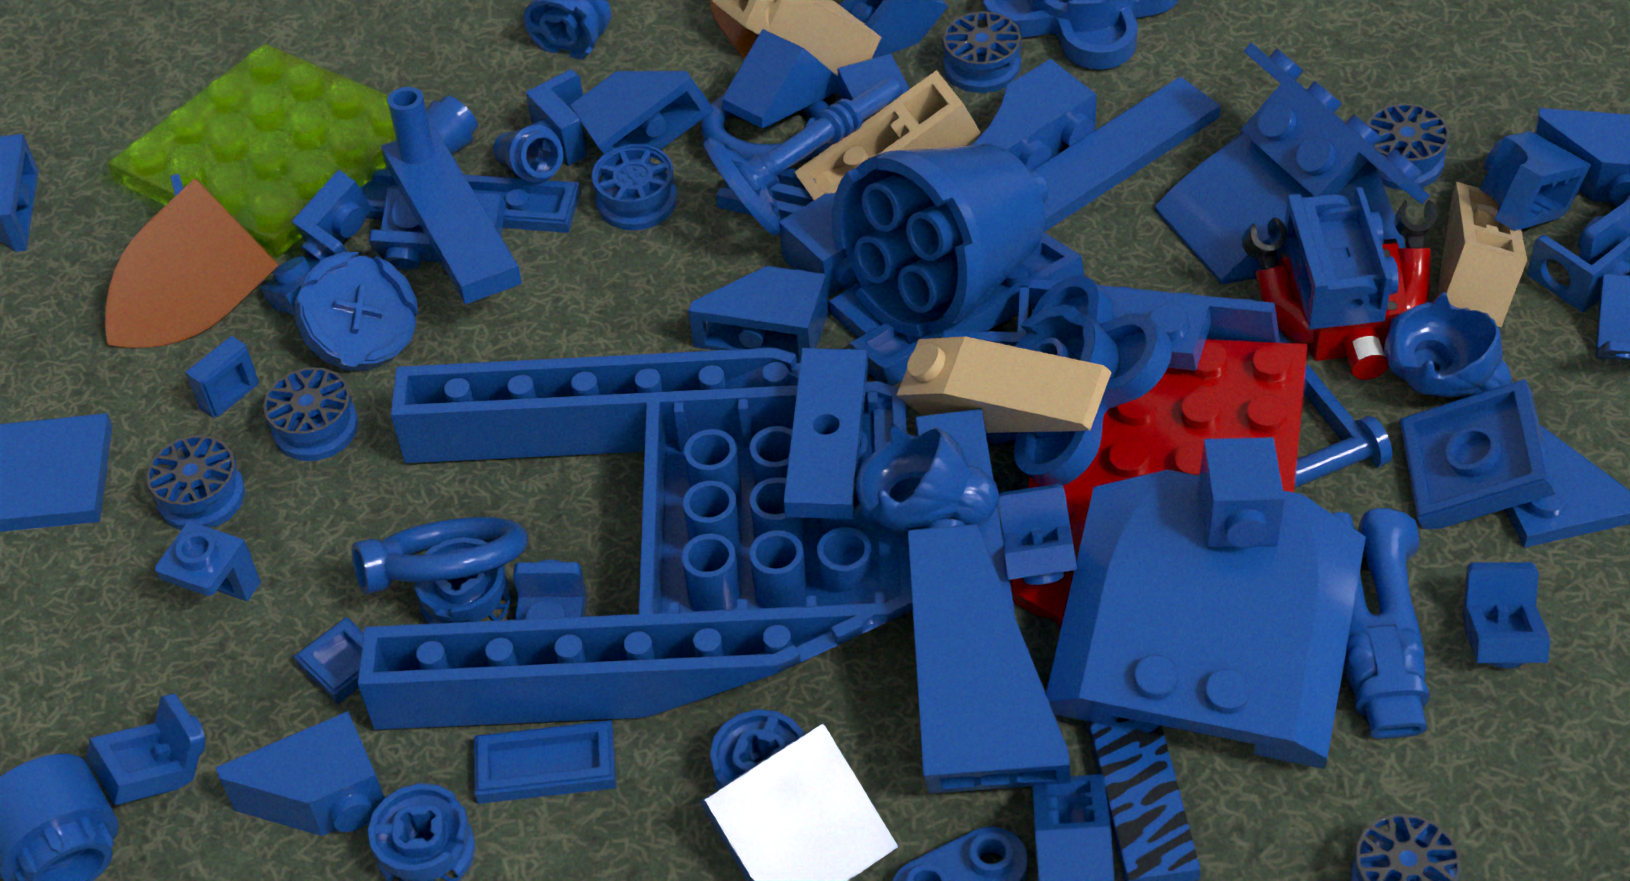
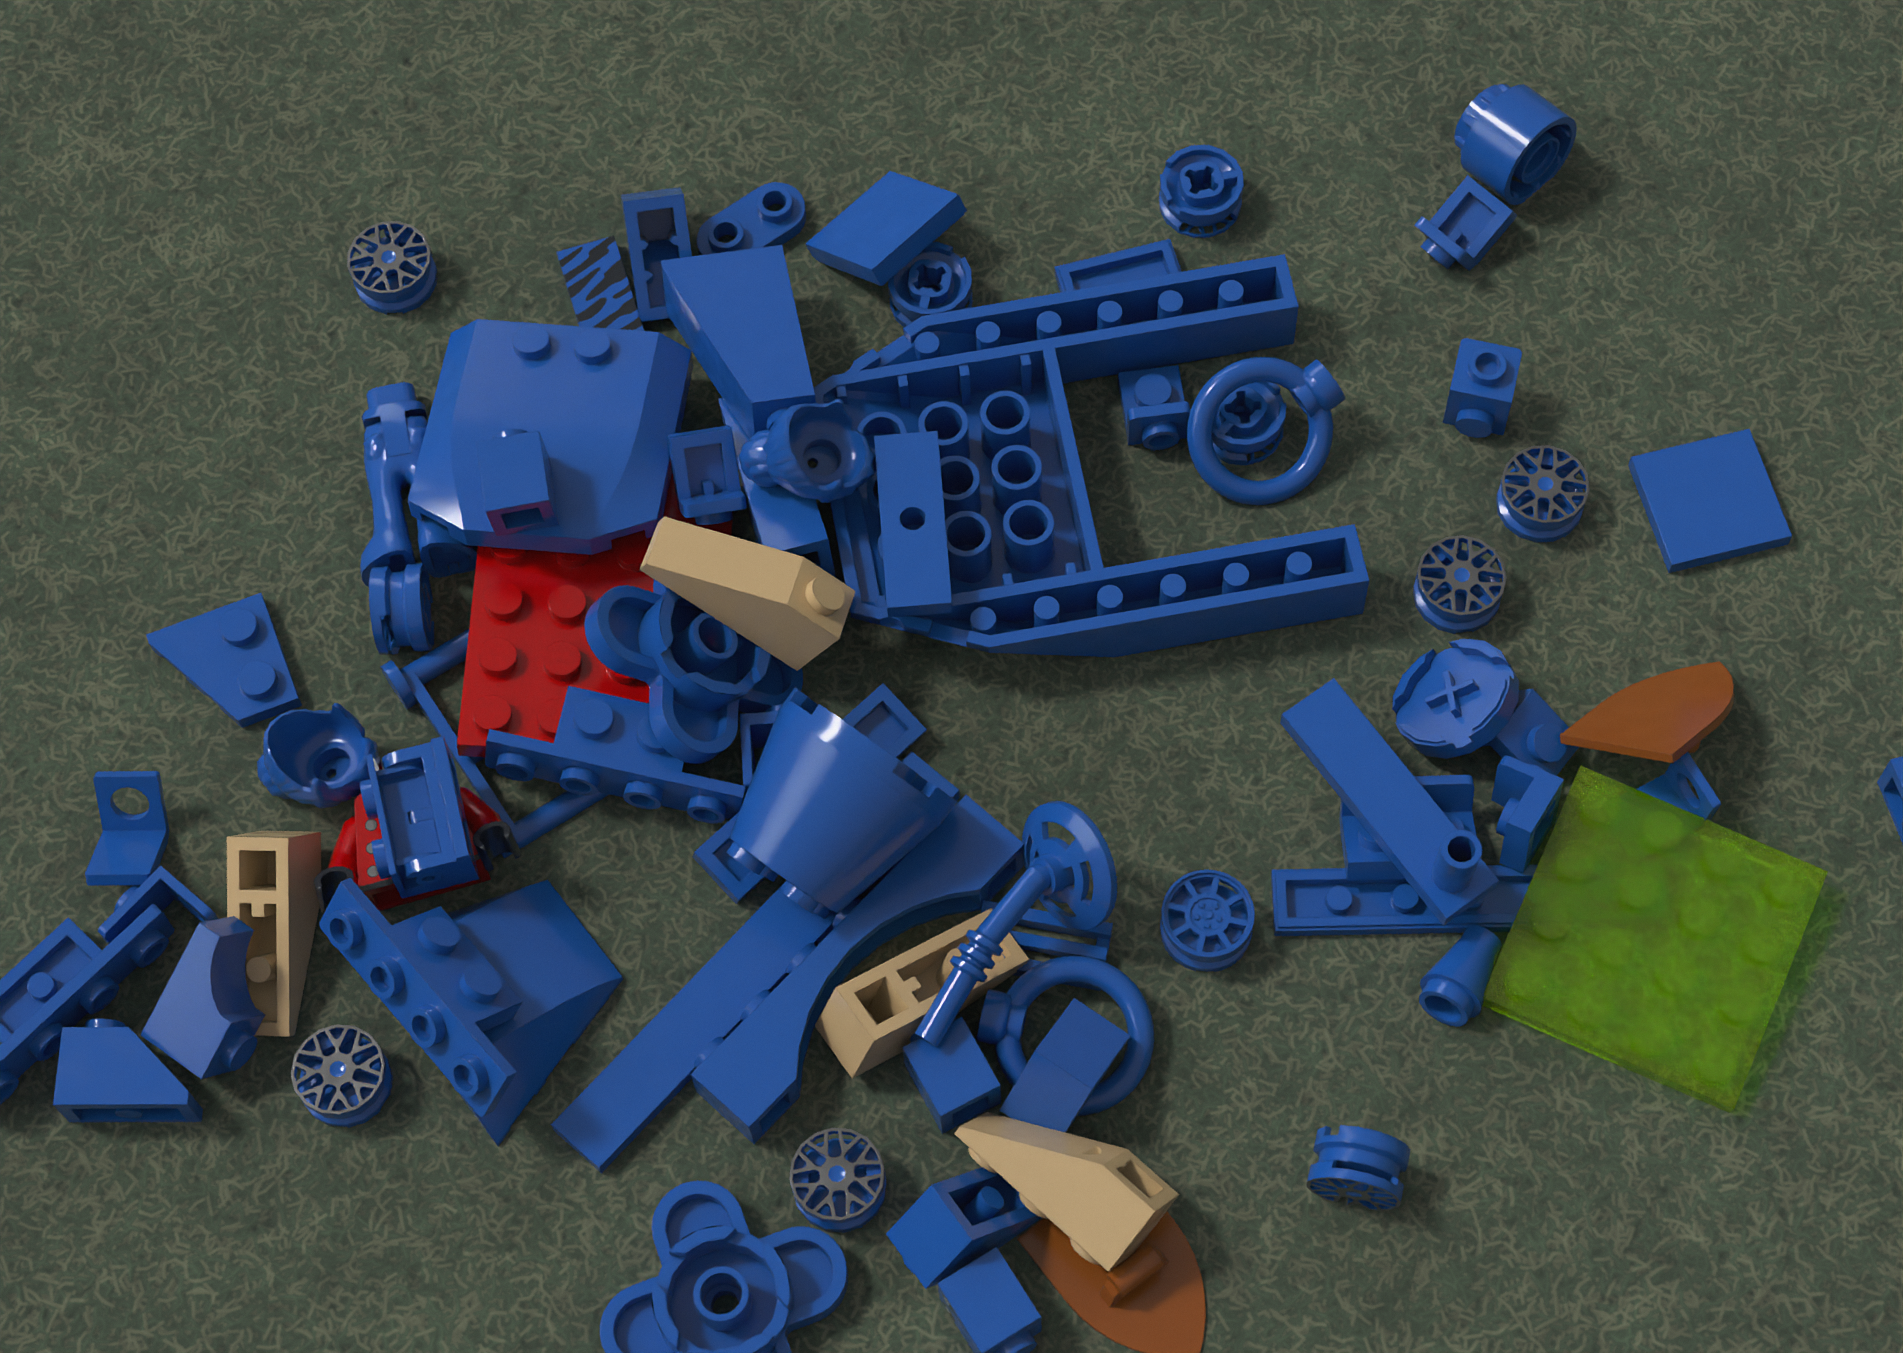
camera: 170 degrees right, 15 degrees up
(222, 377) = (1566, 609): blue tile -> none
(307, 780) = (1313, 218): blue slope -> none
(334, 660) = (1335, 345): blue tile -> none
(530, 152) = (1339, 941): blue cone -> none
(551, 108) = (1327, 1000): blue bracket -> none
(641, 108) = (1227, 1005): blue slope -> none
(763, 311) = (1019, 752): blue slope -> none
(1370, 477) = (401, 609): none -> blue wheel
(1476, 456) = (298, 657): blue tile -> none
(1503, 614) = (290, 494): blue bracket -> none

